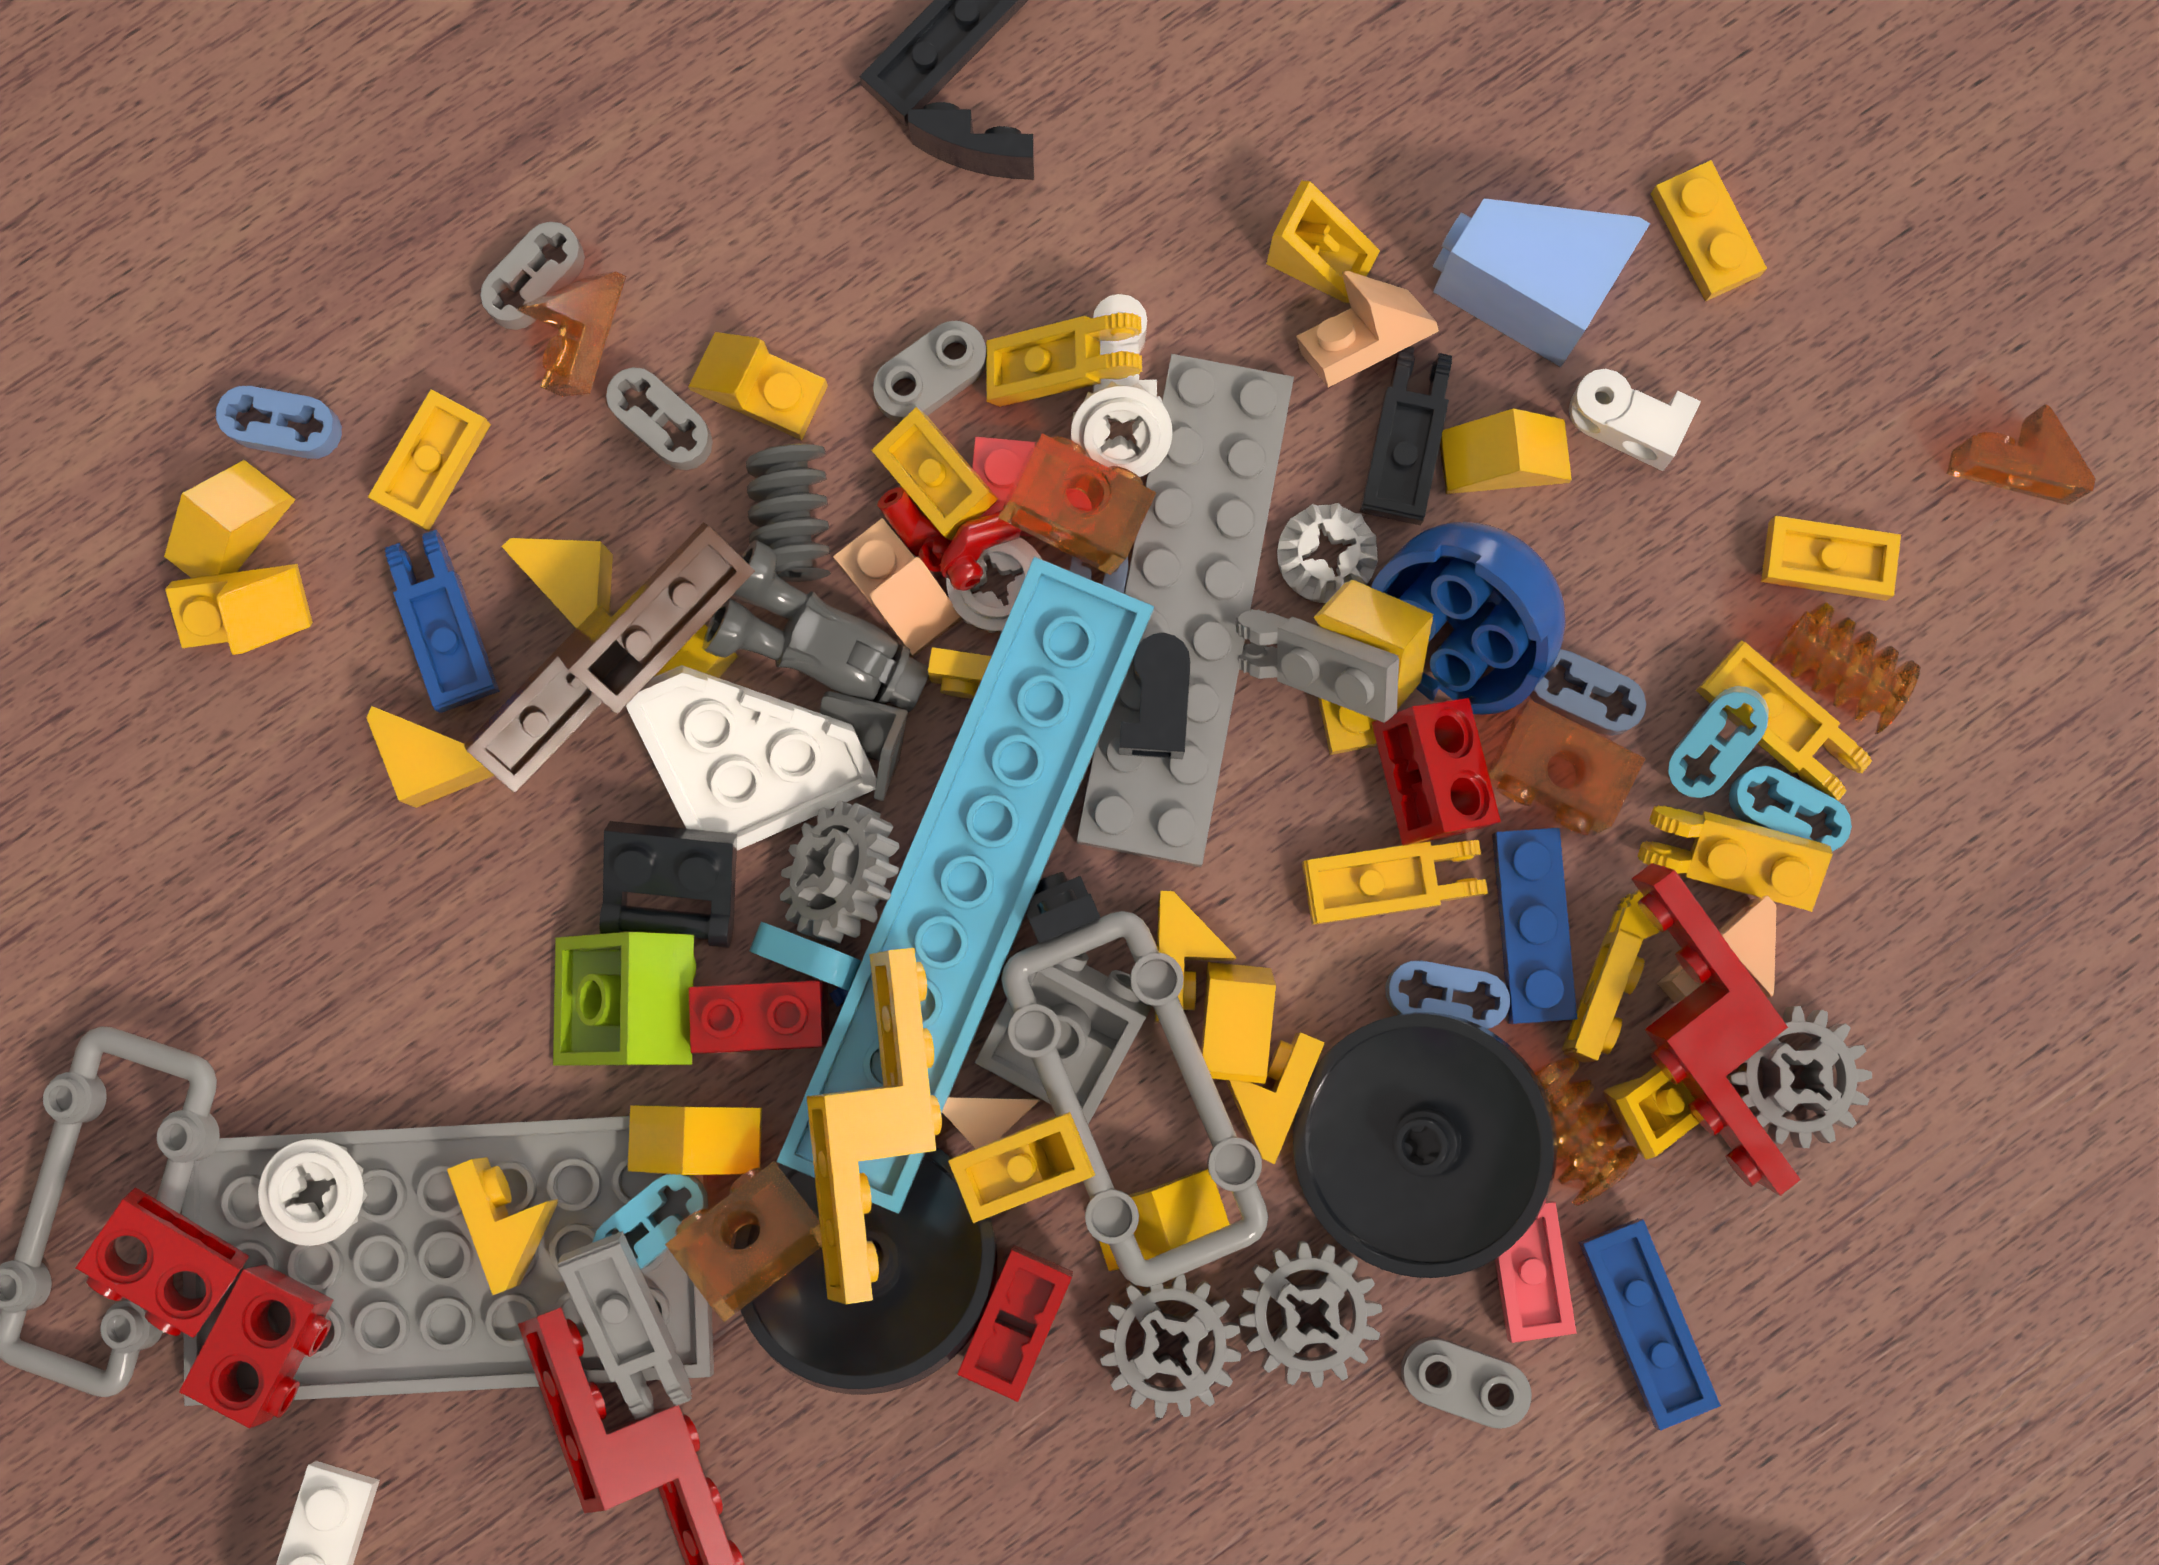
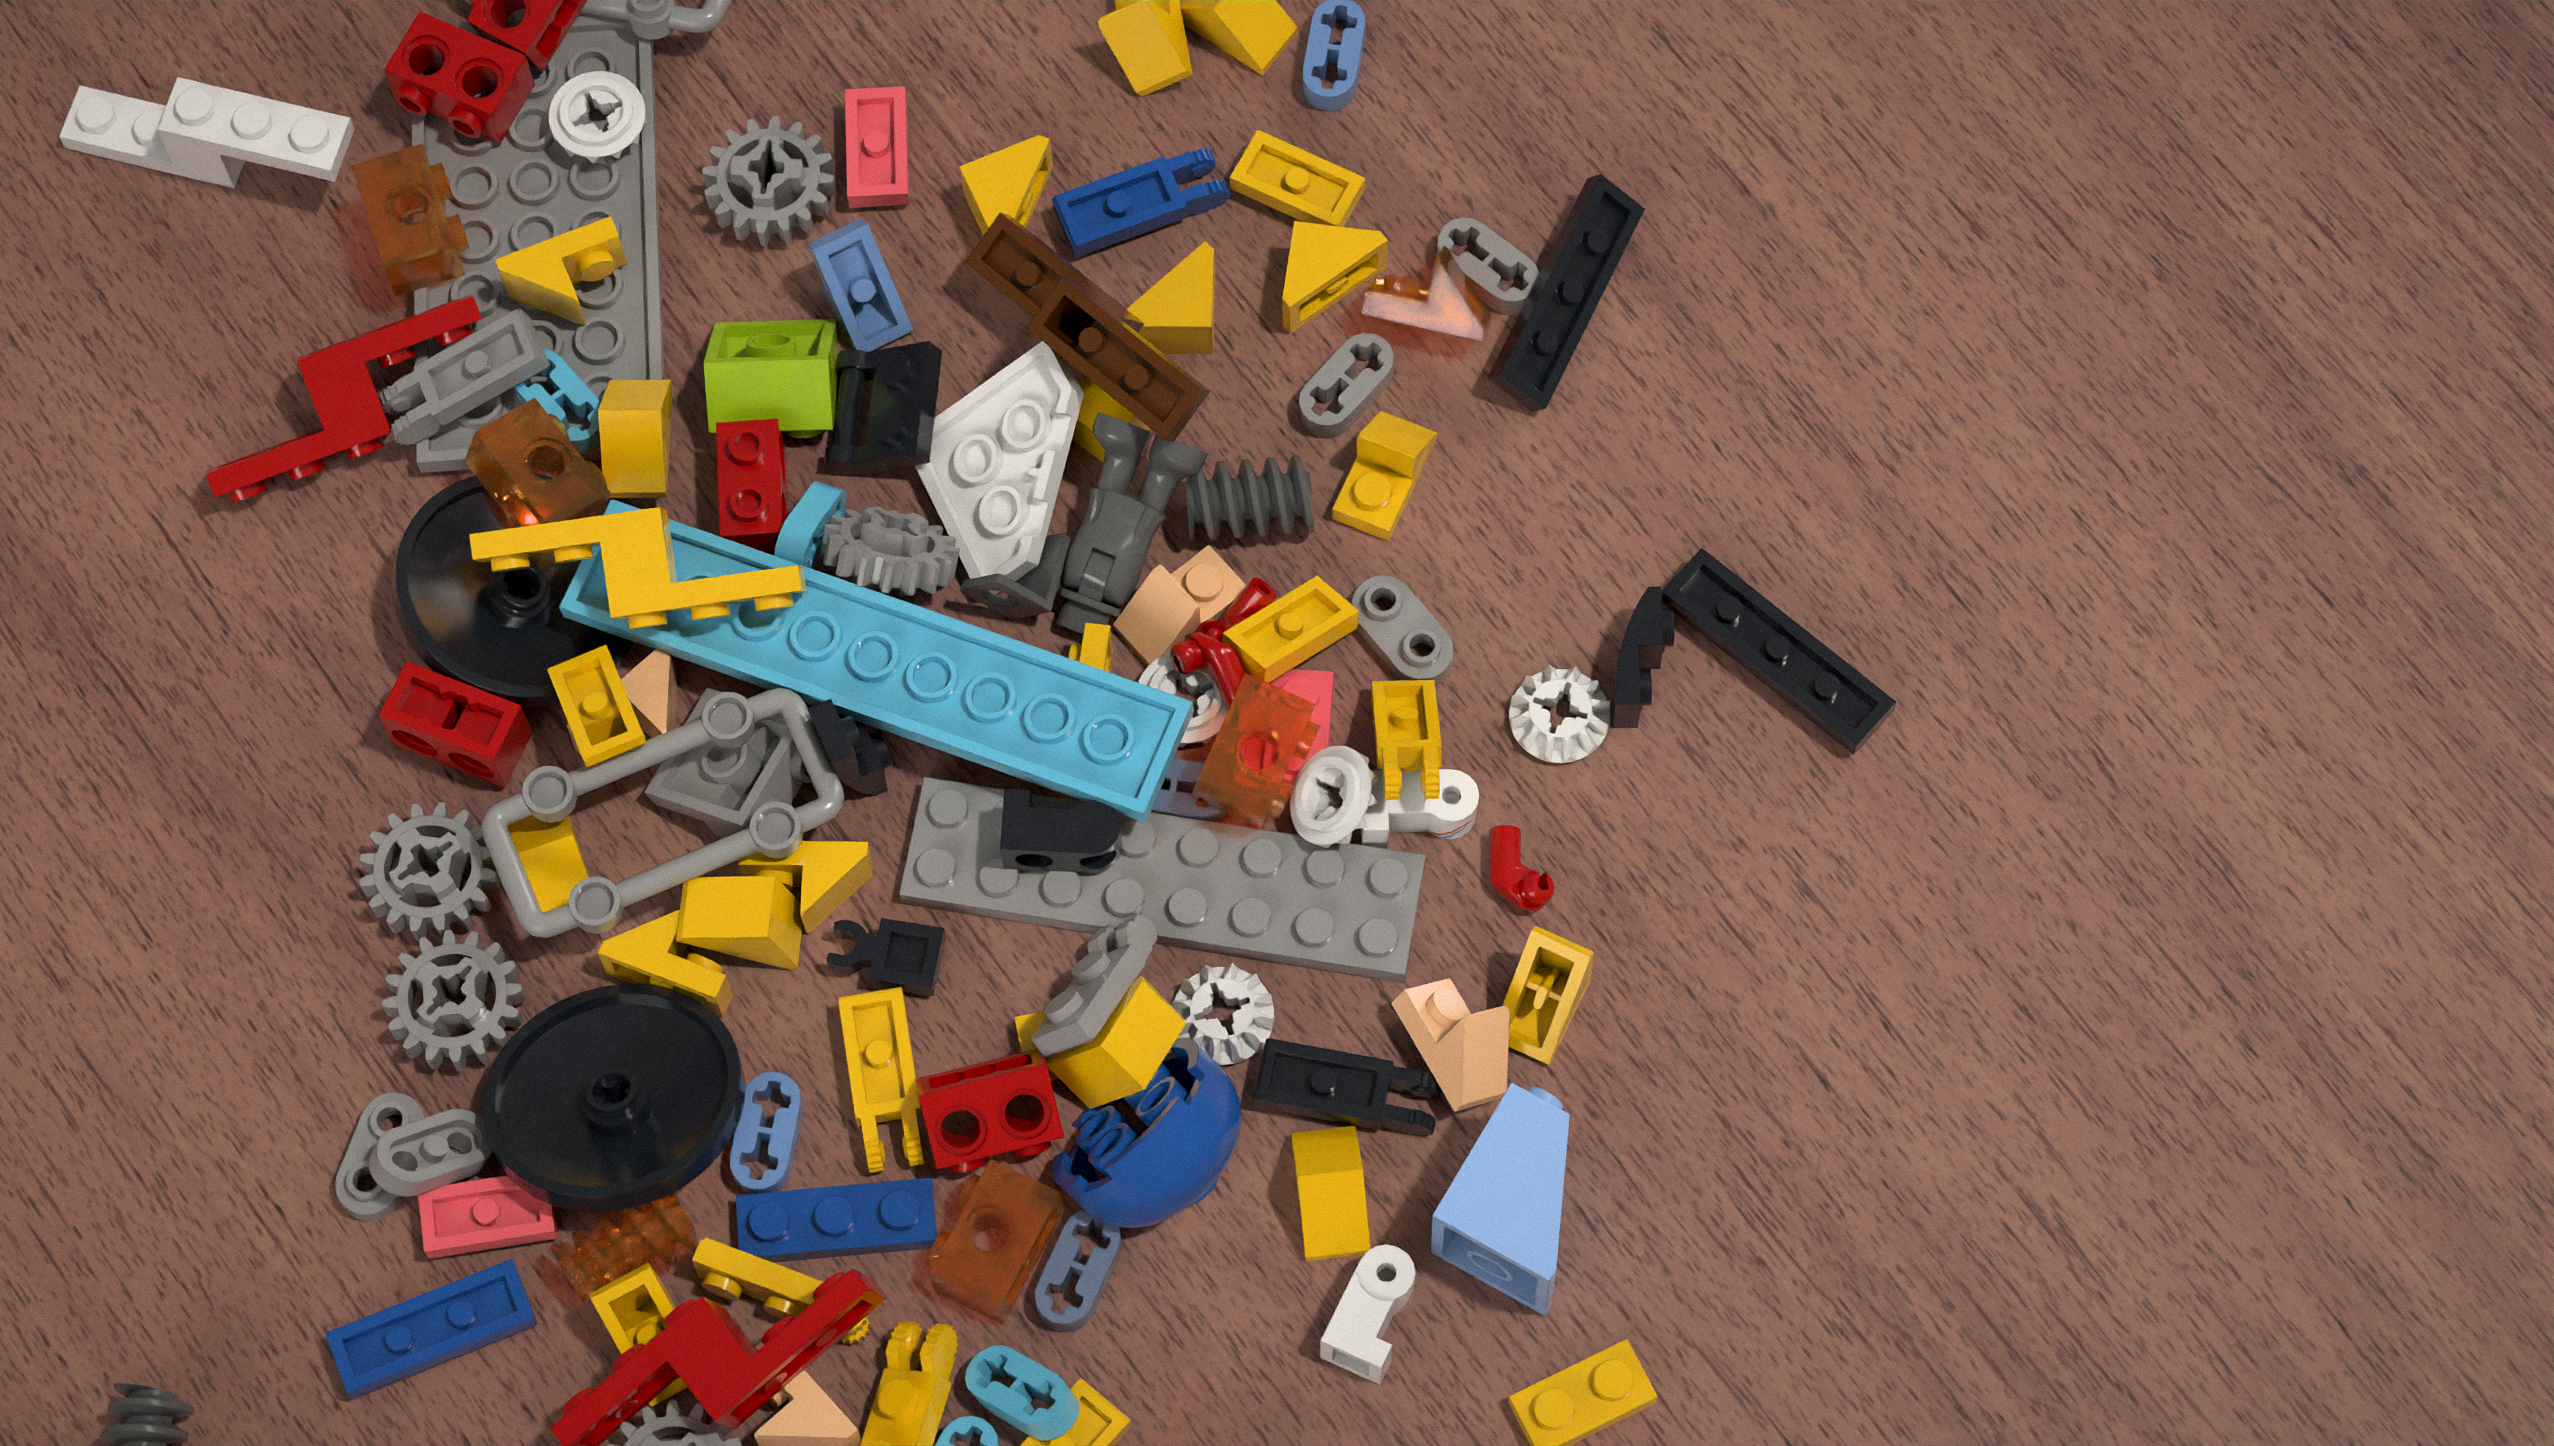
camera: 90 degrees right, 15 degrees down
(360, 894) = (877, 147): none -> coral plate
(389, 1031) = (745, 172): none -> light grey gear
(396, 1418) = (419, 251): none -> clear orange brick
(526, 437) = (1326, 267): none -> yellow slope
(529, 909) = (859, 287): none -> medium blue slope
(570, 195) = (1566, 293): none -> black plate
(1036, 248) = (1575, 736): none -> white gear
(1193, 274) = (1510, 876): none -> red arm
(1267, 863) = (897, 957): none -> black plate
(1480, 1331) = (426, 1155): none -> light grey plate

